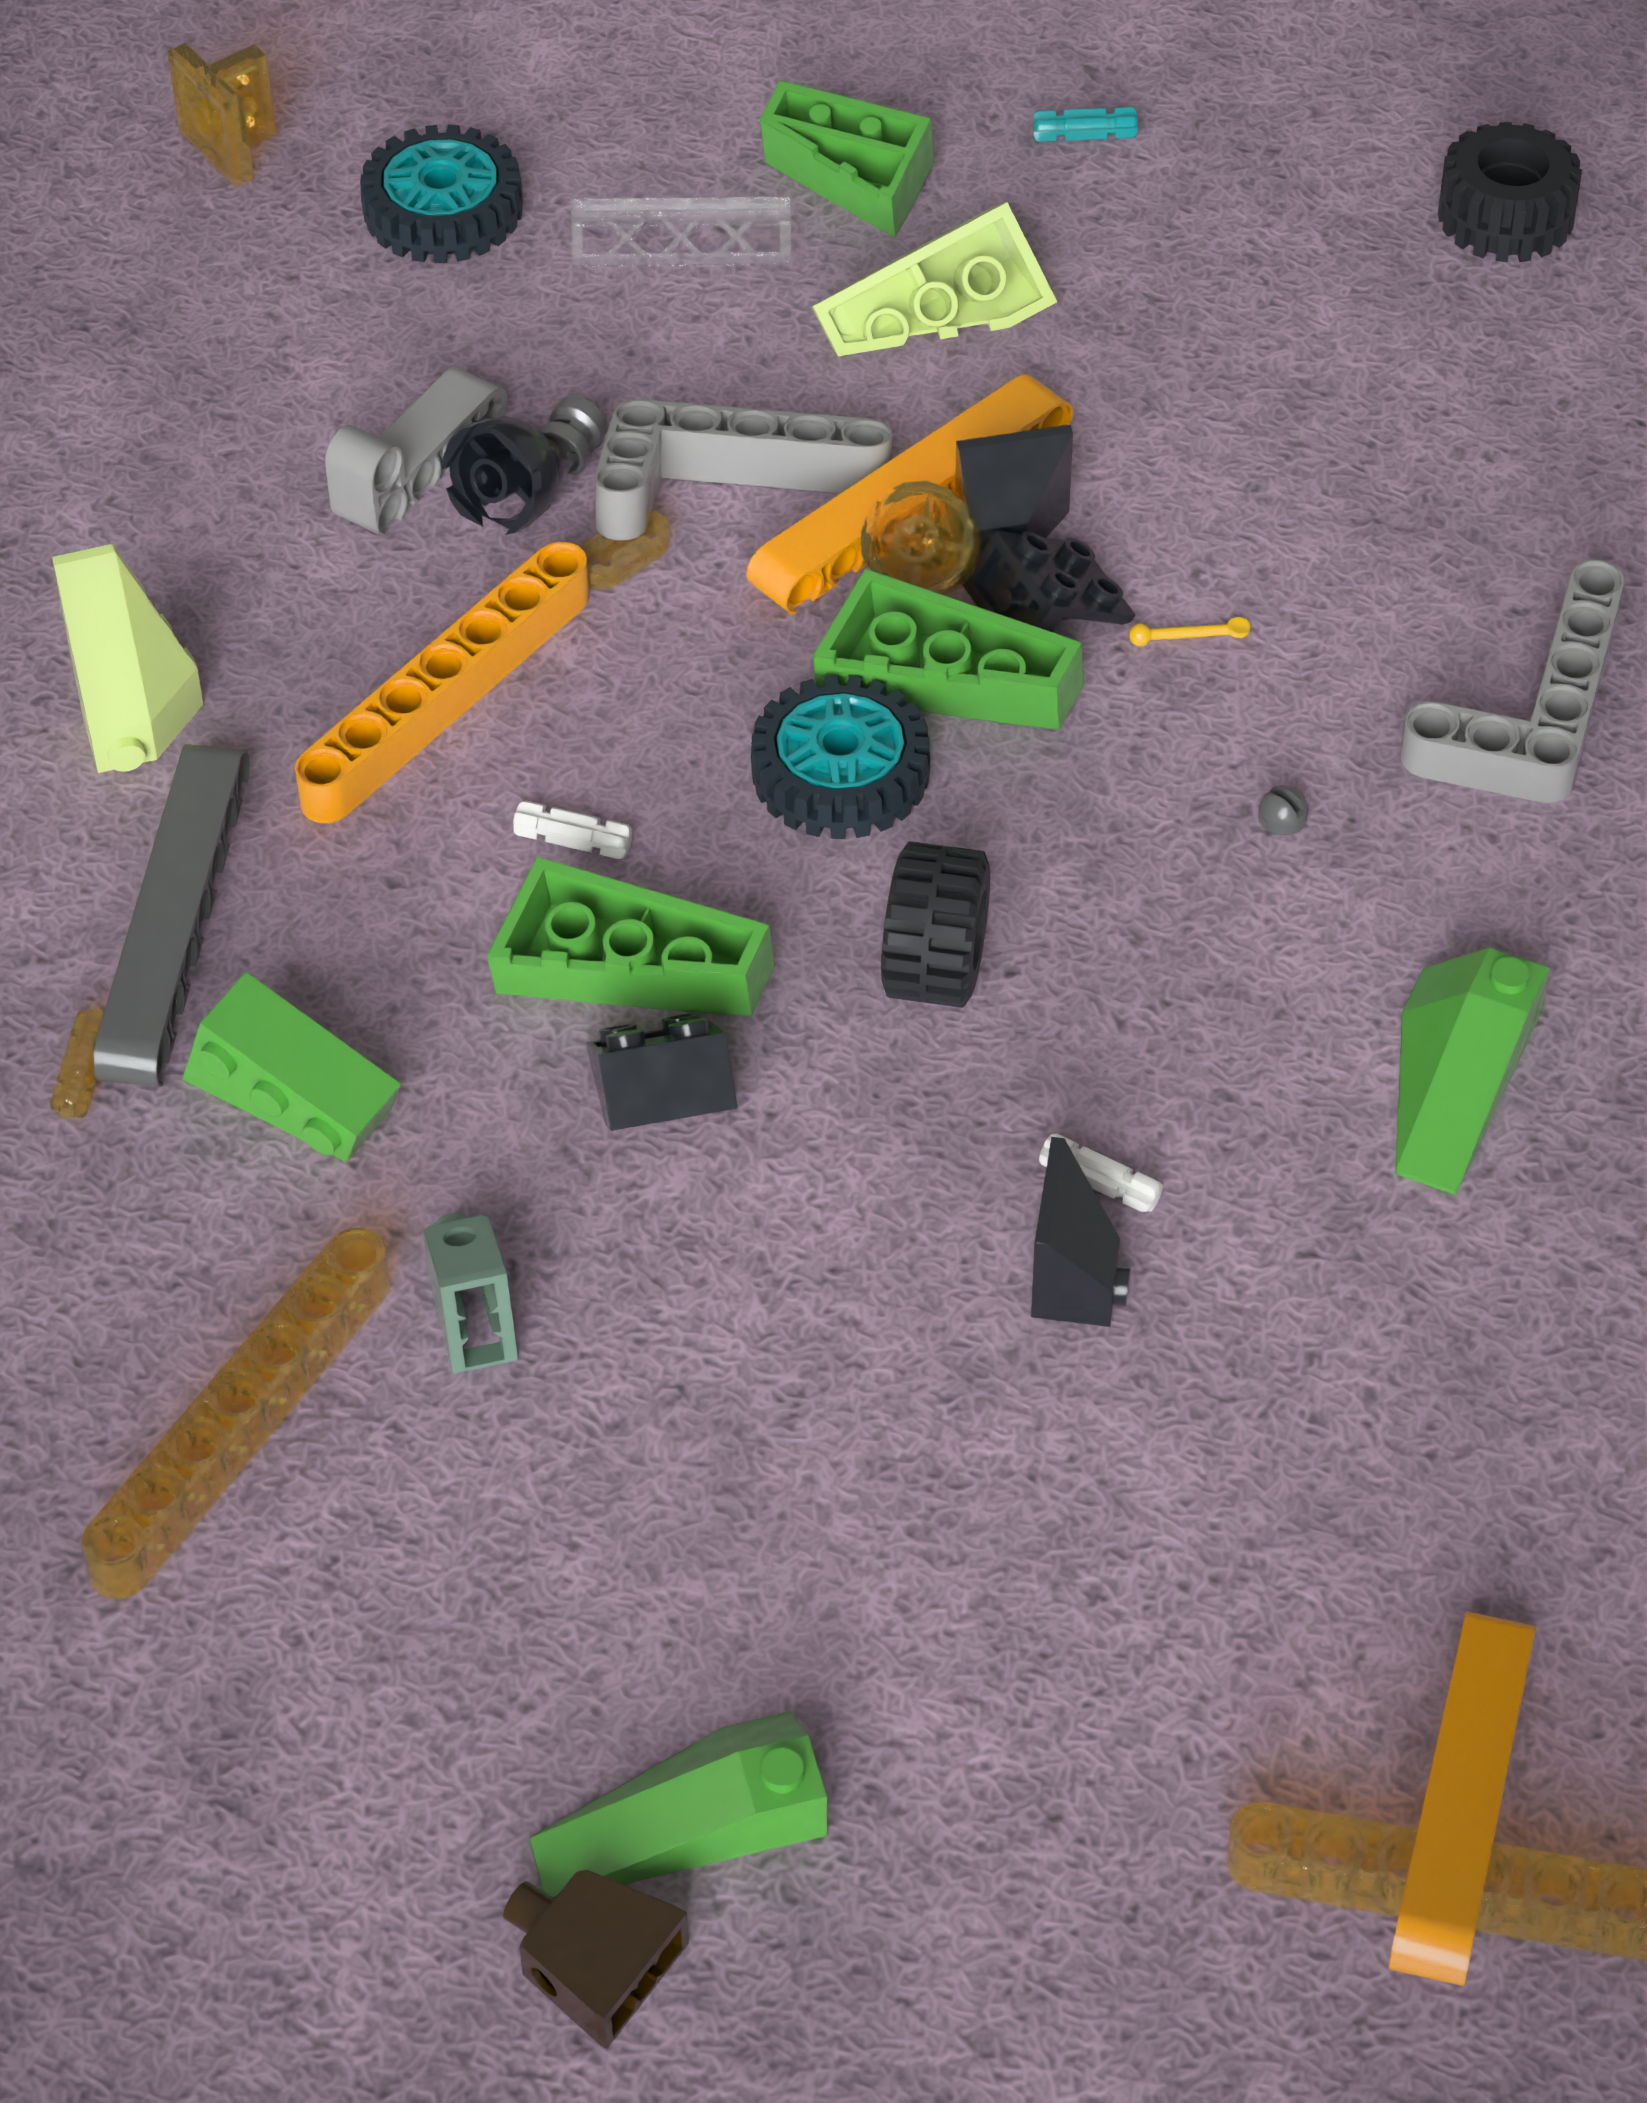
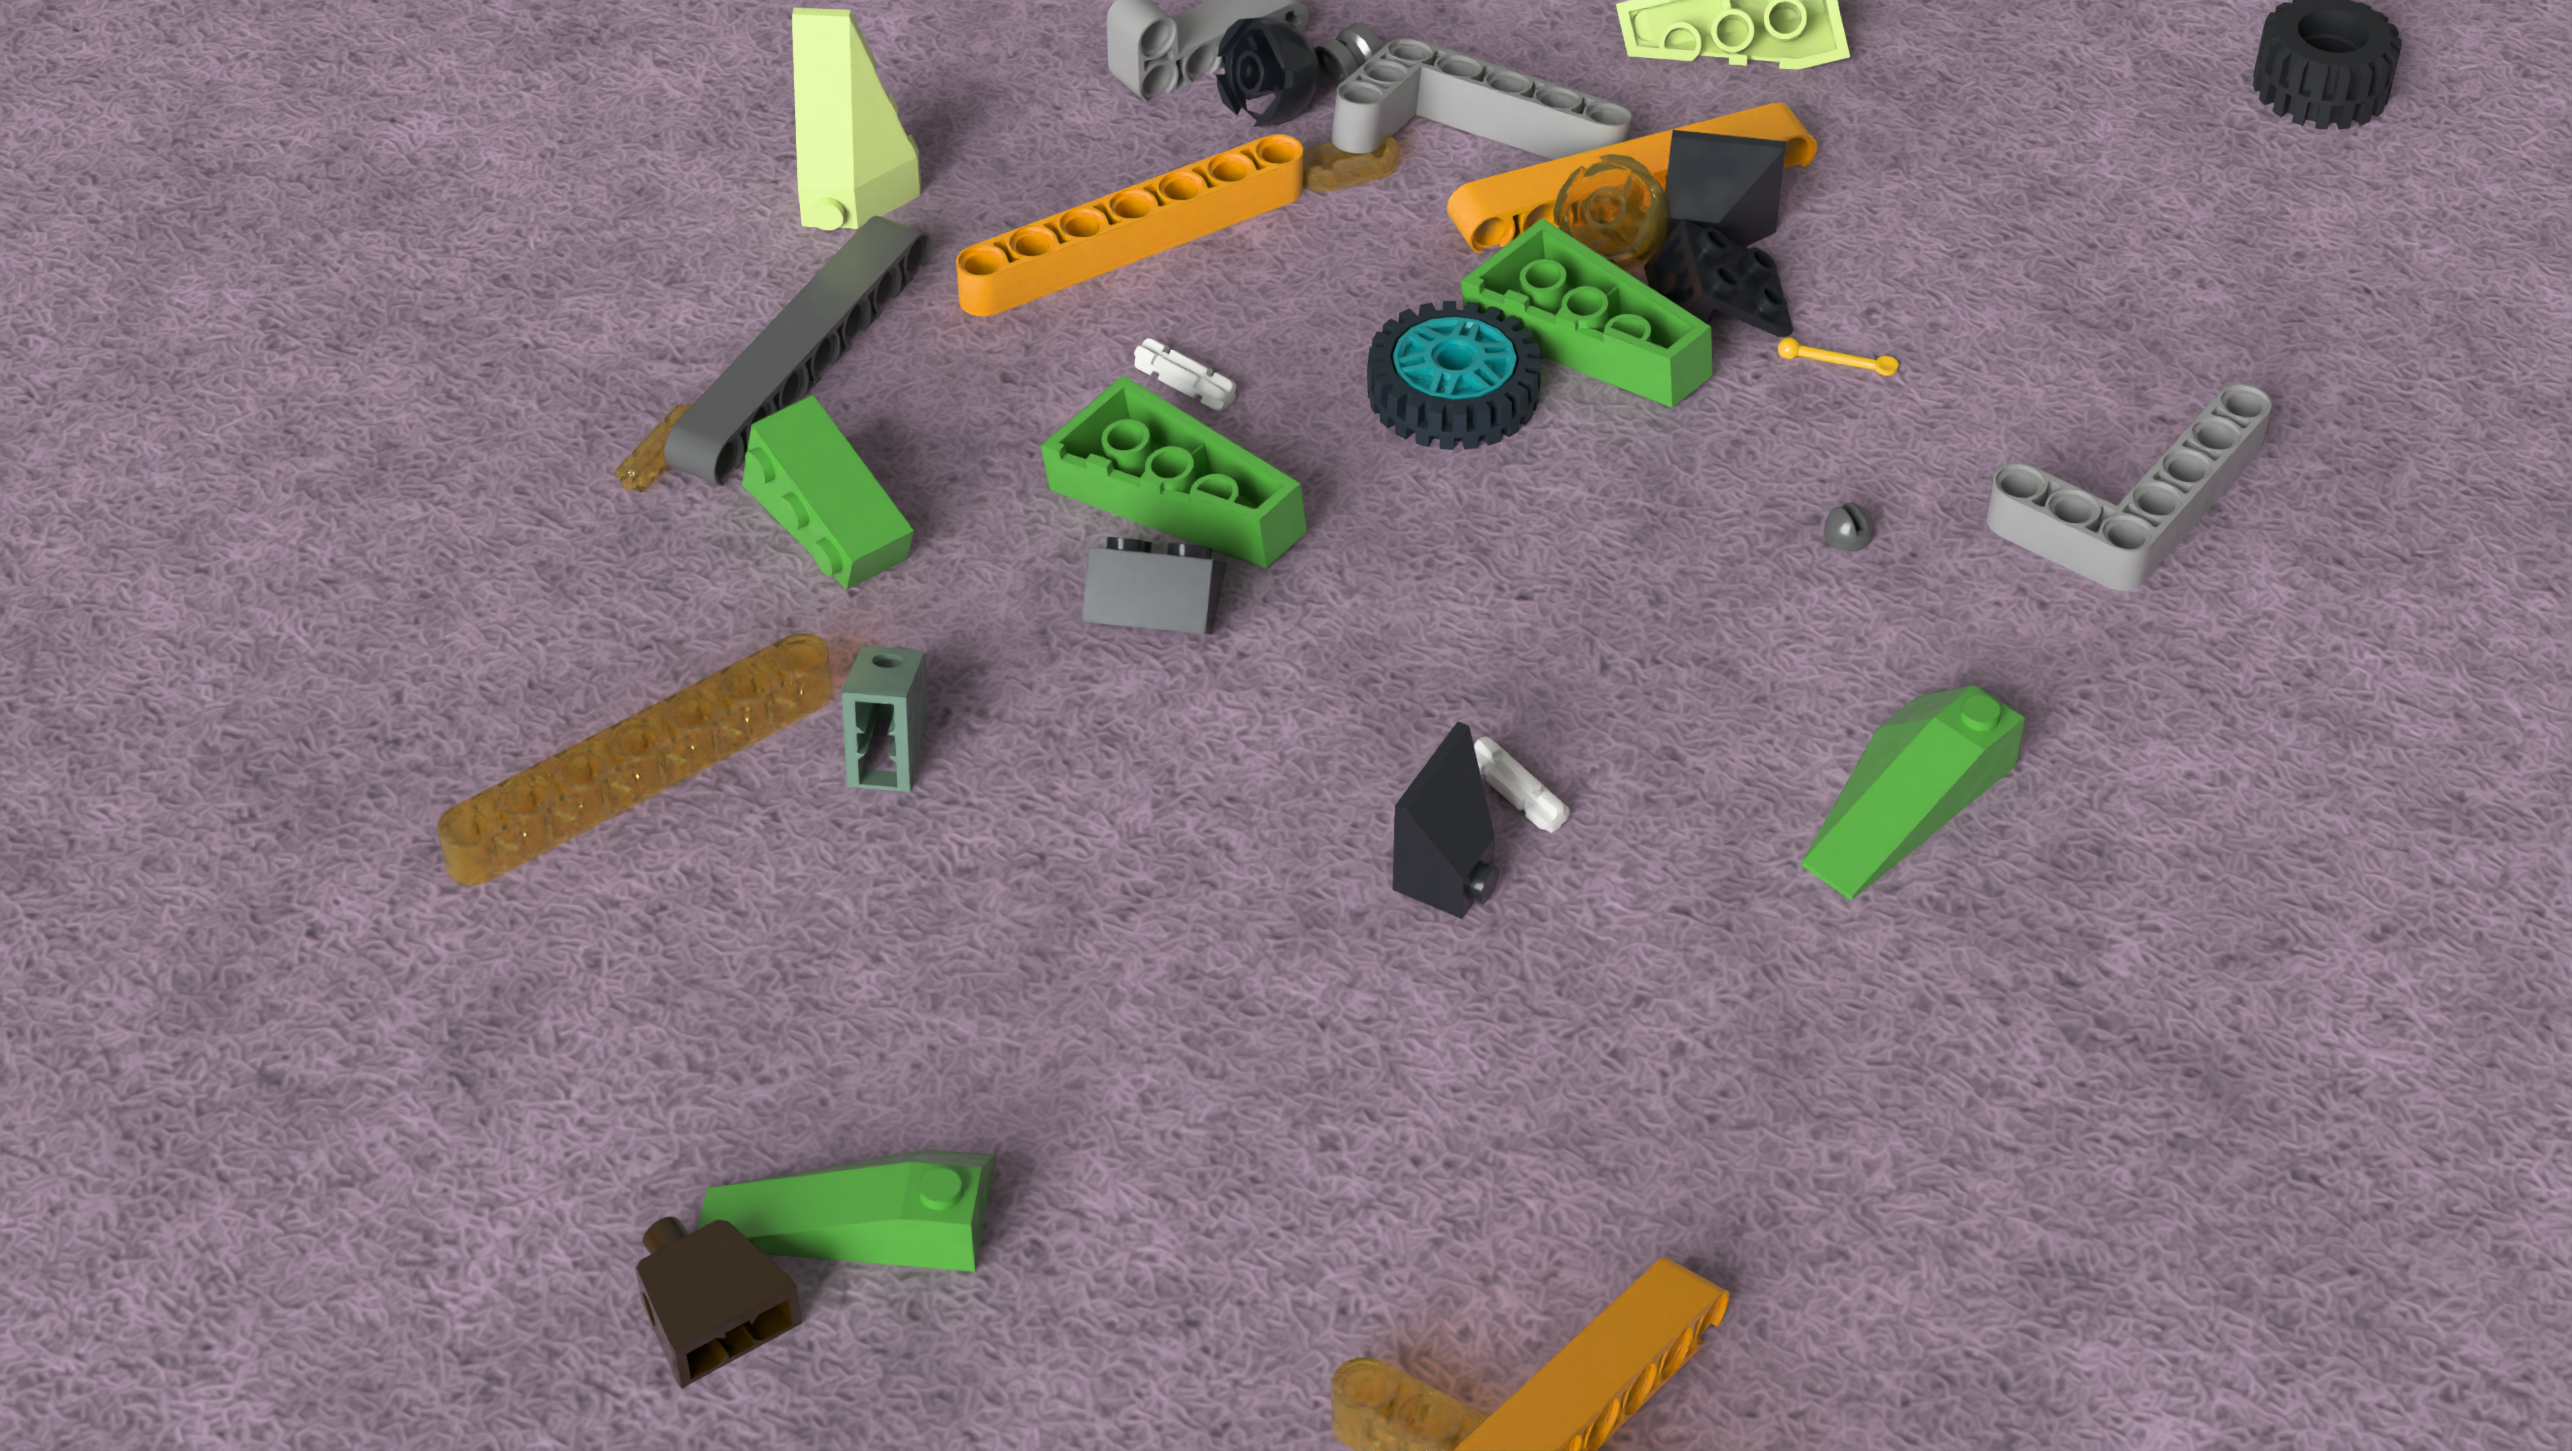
camera: 20 degrees right, 5 degrees down
(935, 924) = (1456, 525): black tyre -> none

